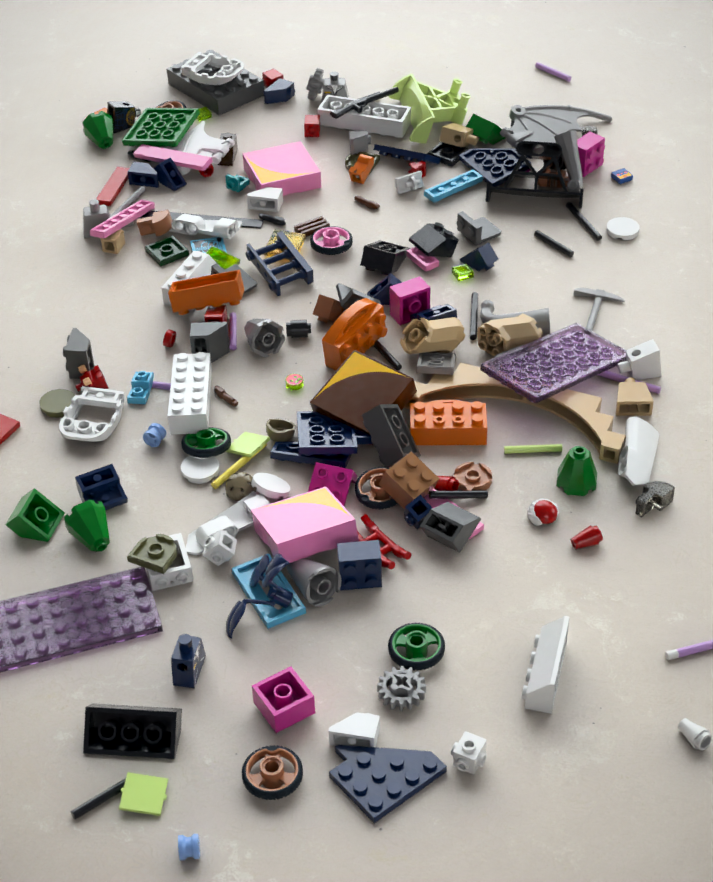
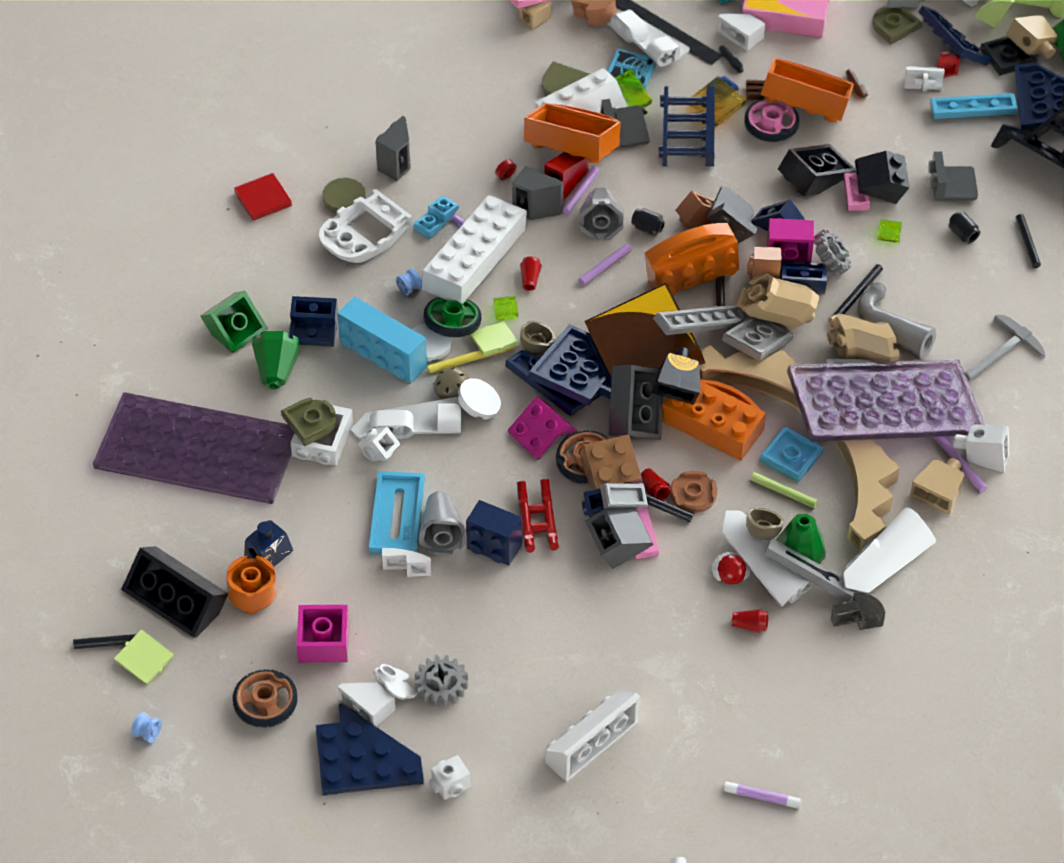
camera: 30 degrees right, 10 degrees up
(91, 378) = (393, 185): red piece -> none
(162, 272) = (560, 76): none -> olive tile
(166, 250) = (585, 50): dark green tile -> none
(167, 477) = (382, 340): none -> medium azure brick
(196, 692) = (251, 584): none -> orange brick
(220, 392) = (514, 268): reddish brown piece -> none
(239, 392) = (530, 272): none -> red cone
(239, 422) = (505, 307): none -> clear neon green tile
(276, 593) = (394, 522): dark blue plant -> none
(289, 365) = (604, 264): none -> lavender bar
(294, 381) = (597, 285): tile -> none
(304, 524) = (472, 461): tile -> none
(308, 616) = (414, 562): none -> white slope
(344, 211) = (807, 89): none -> orange piece
(361, 168) = (881, 34): orange leg -> none
(362, 704) = (394, 681): none -> white plate
(396, 363) = (700, 319): none -> light grey tile
(404, 315) = (764, 260): none -> nougat brick
(414, 402) = (678, 377): none -> torso
(416, 644) = (484, 654): green wheel -> none
(435, 495) = (623, 496): none -> light grey tile
(442, 294) = (832, 252): none -> light grey gear
(481, 258) = (921, 223): dark blue slope -> none
(509, 250) = (964, 227): none -> black brick
(518, 425) = (791, 454): none -> medium azure tile
(548, 468) = (764, 523): none -> dark tan helmet
(554, 489) = (778, 580): none -> white panel
(600, 485) = (808, 569): none -> light grey tile

